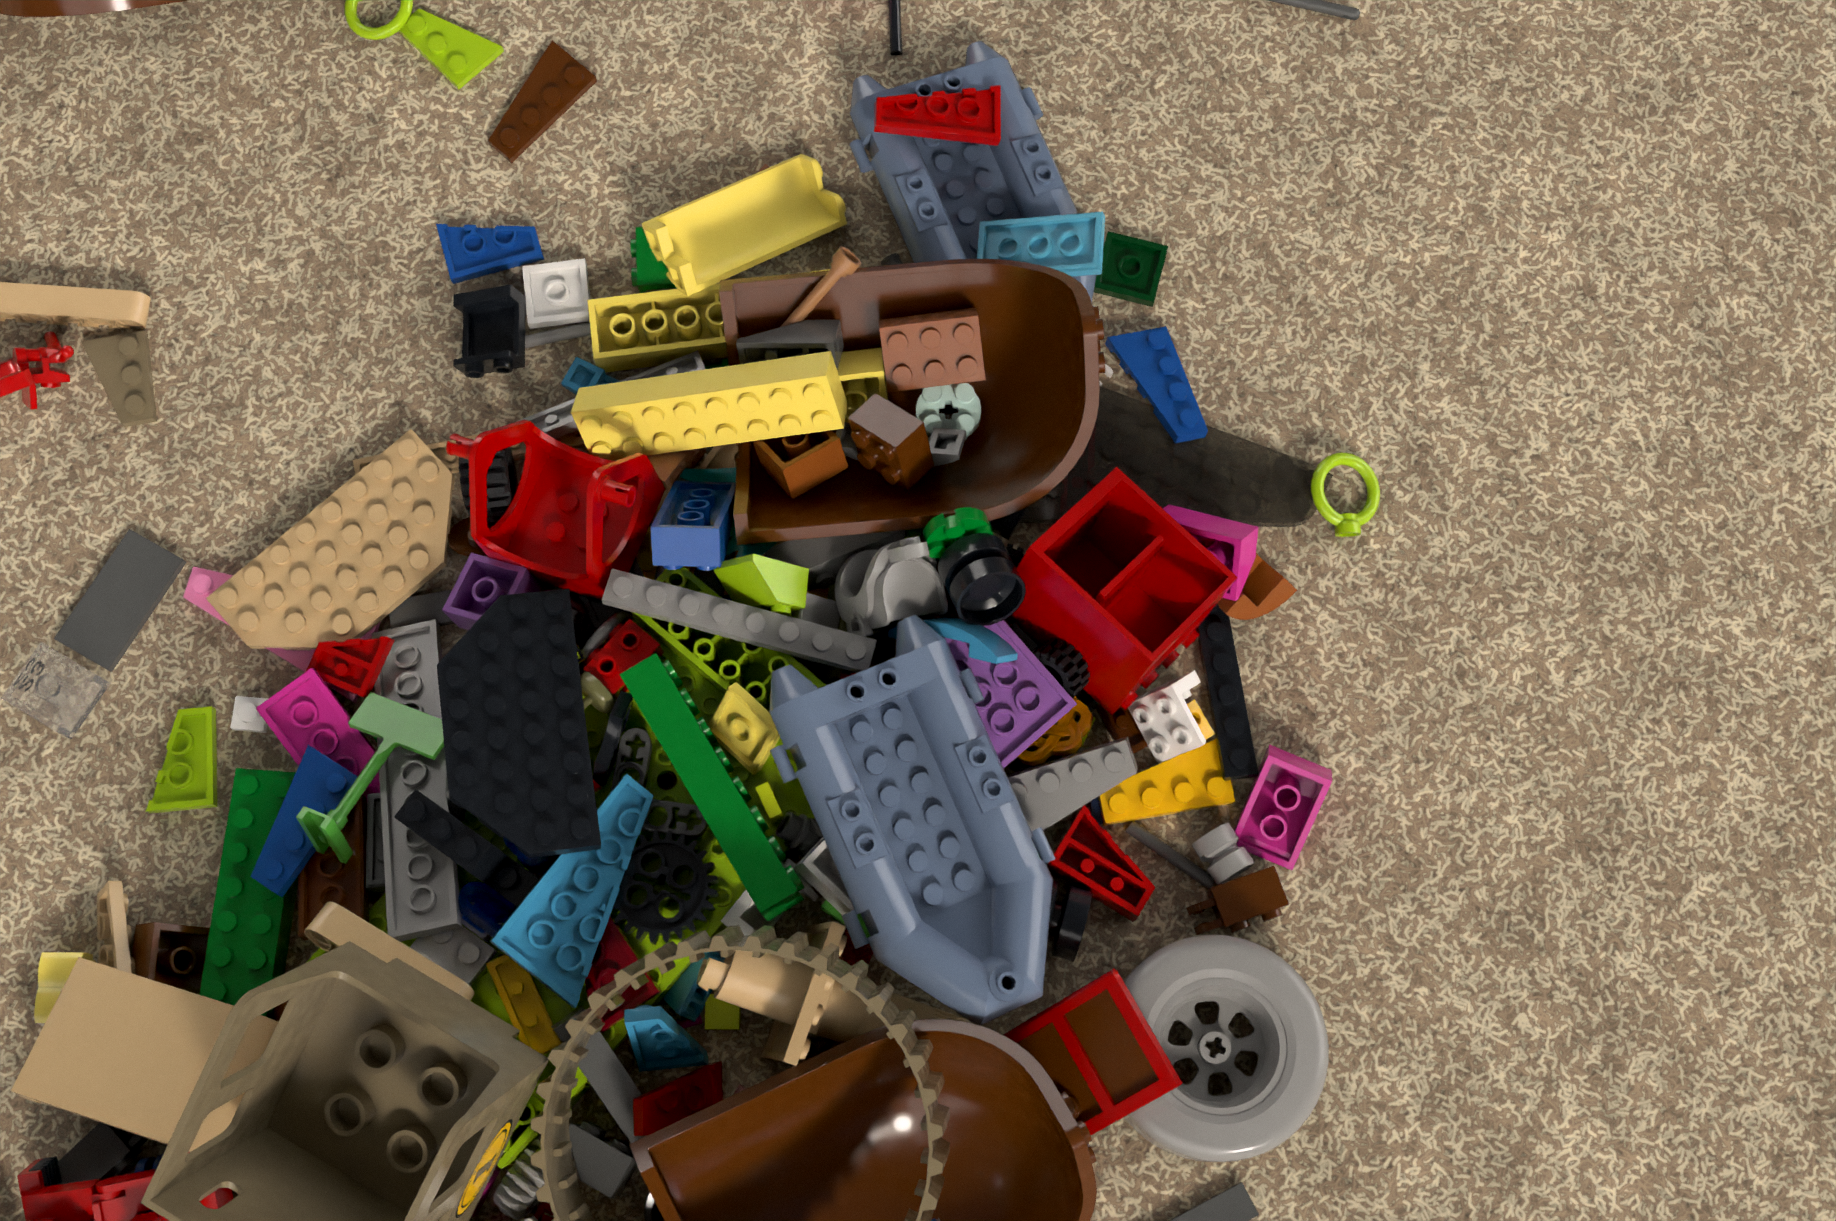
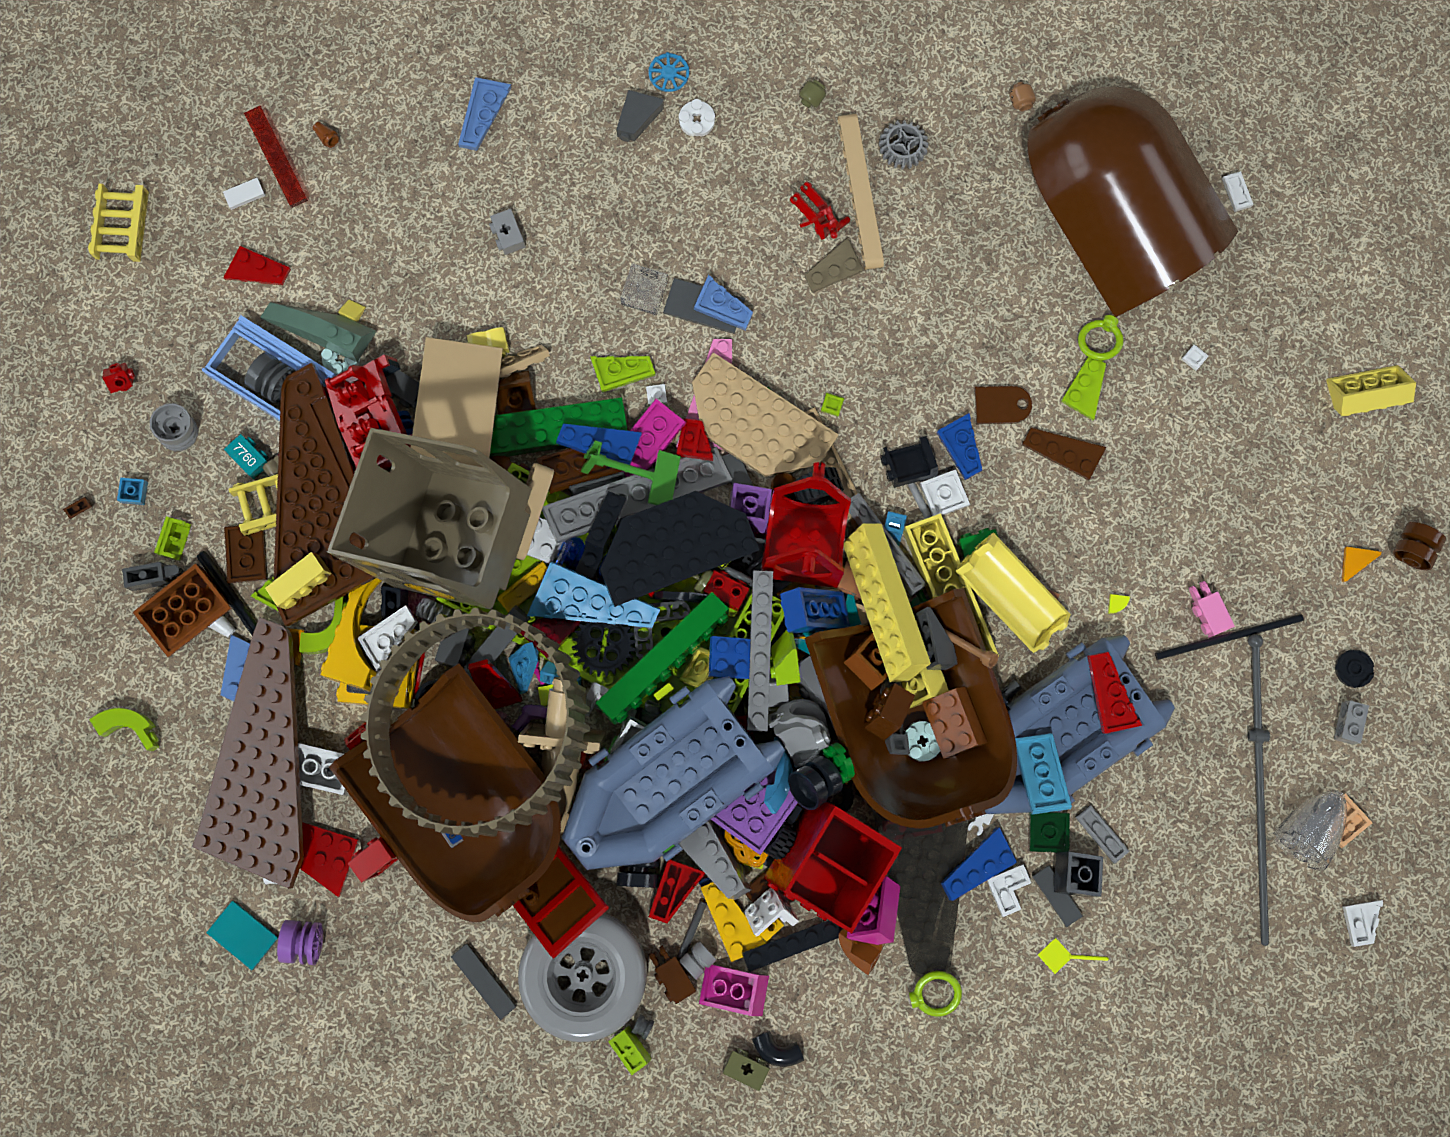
camera: 75 degrees right, 5 degrees up
(127, 569) = (721, 305): none -> medium blue wing
(357, 432) = (832, 404): none -> lime tile
(437, 179) = (1000, 405): none -> reddish brown tile
(738, 672) = (729, 657): none -> blue plate
(745, 1046) = (529, 713): none -> medium lavender arm
(800, 86) = (1117, 603): none -> neon yellow tile
(1149, 195) = (1102, 834): none -> light grey tile
(1201, 356) = (1003, 888): none -> white plate
(1204, 238) = (1078, 874): none -> black brick
(1229, 282) = (1060, 902): none -> dark grey tile
(1315, 969) = (643, 1027): none -> dark grey wheel
(1319, 306) = (1056, 956): none -> neon yellow piece
(1351, 998) = (630, 1050): none -> lime hinge
(1396, 761) = (777, 1055): none -> black cylinder
(1427, 805) = (751, 1078): none -> olive brick

